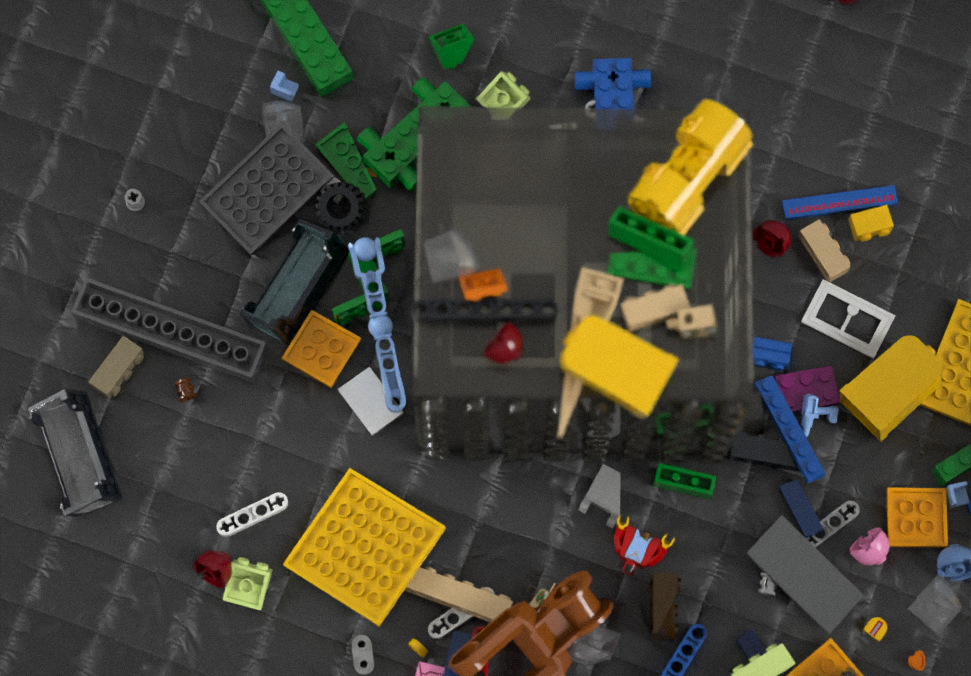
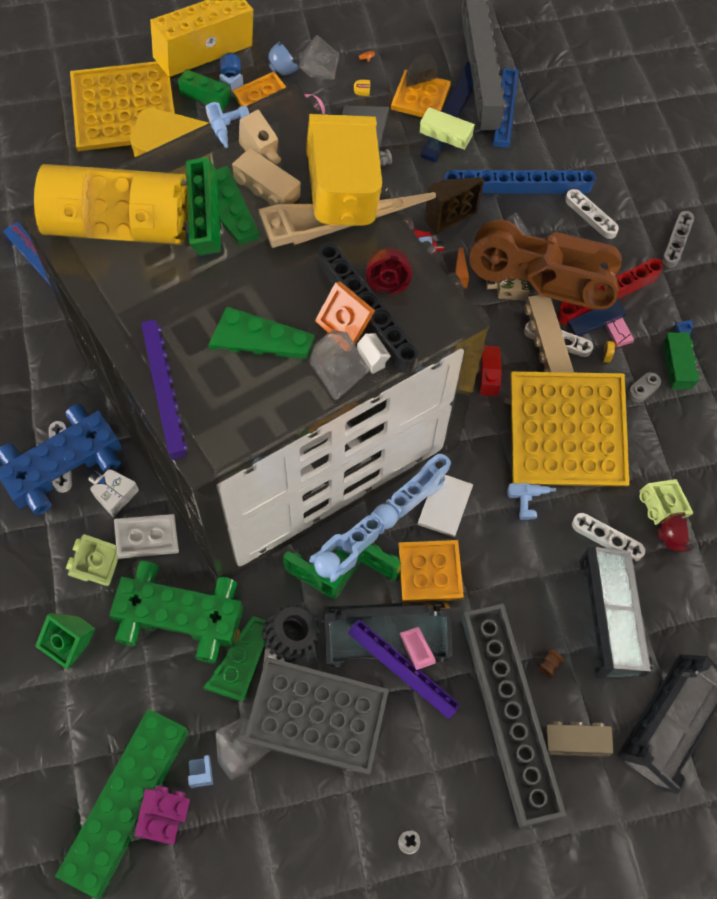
camera: 125 degrees left, 10 degrees down
(187, 465) = (616, 613): none -> windscreen
(257, 274) = (404, 669): none -> dark purple piece
(266, 295) = (417, 648): none -> bright pink tile
(269, 41) = (161, 815): none -> magenta plate
(335, 473) = (525, 492): none -> light blue piece
(442, 284) = (373, 352): none -> white piece
(470, 526) = (490, 371): none -> red slope
(512, 128) = (163, 390): none -> dark purple piece
(516, 218) = (252, 333): none -> green wing
(583, 564) = (461, 268): none -> orange slope
(745, 310) = (219, 120): none -> light blue piece

